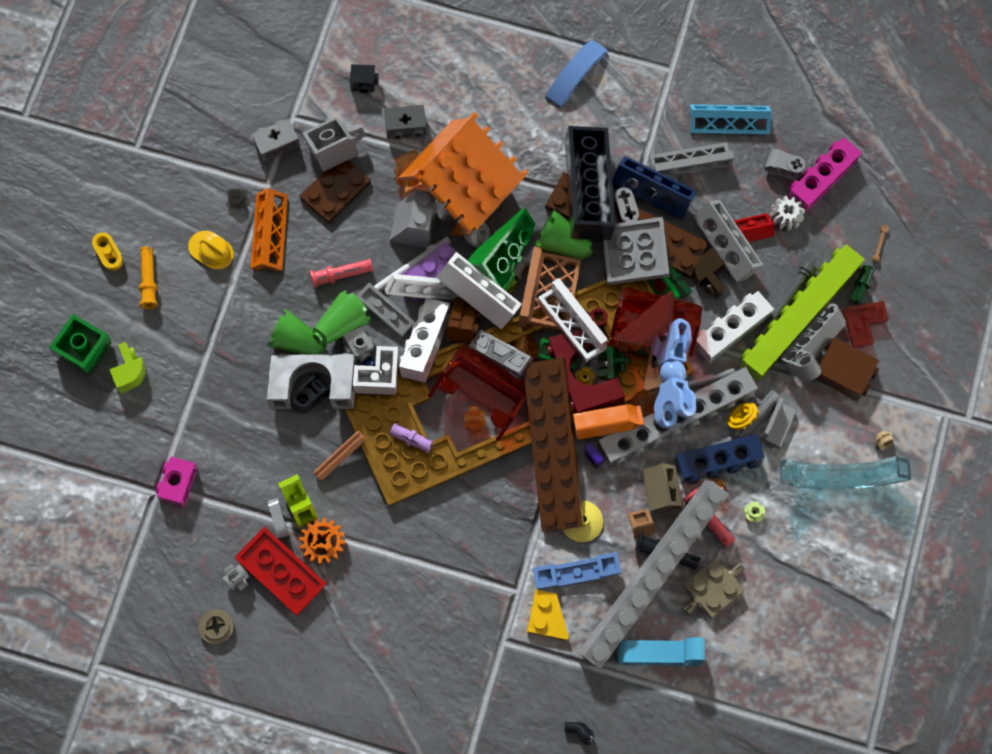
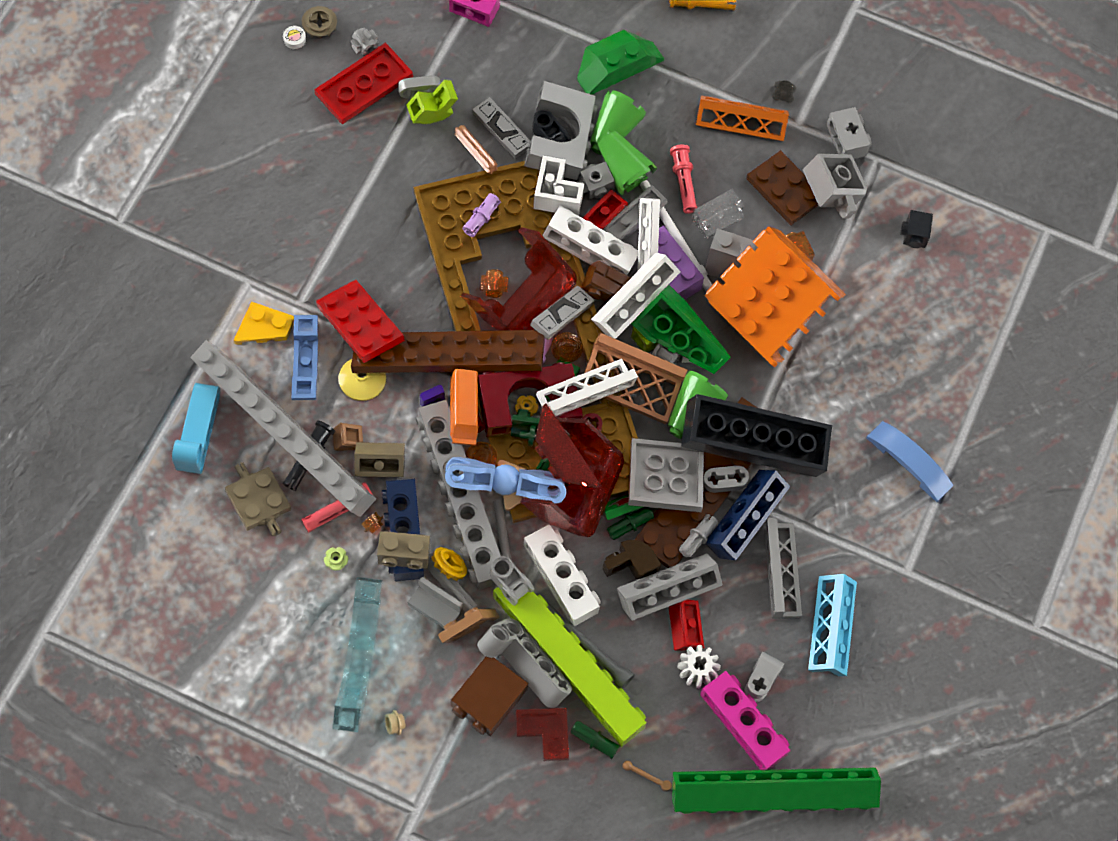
camera: 95 degrees right, 5 degrees down
(211, 250) = (728, 63): yellow piece -> none
(223, 346) = (616, 60): none -> green wedge
(236, 648) = (294, 37): none -> white tile
(309, 438) = (501, 127): none -> light grey tile
(316, 547) = (388, 120): orange gear -> none
(372, 240) = (718, 213): none -> clear hinge
(386, 334) = (606, 209): none -> red slope
(412, 115) = (860, 253): dark grey brick -> none
(479, 236) = (711, 318): white cone -> none
(534, 527) = (360, 321): none -> red plate
(582, 730) = (135, 338): black arm -> none
(681, 223) = (698, 536): none -> light grey axle
(748, 448) = (403, 550): none -> dark tan brick
(757, 358) = (512, 584): none -> light grey piece
(793, 392) = (471, 622): none -> medium nougat wing
(875, 147) = (776, 790): none -> green brick

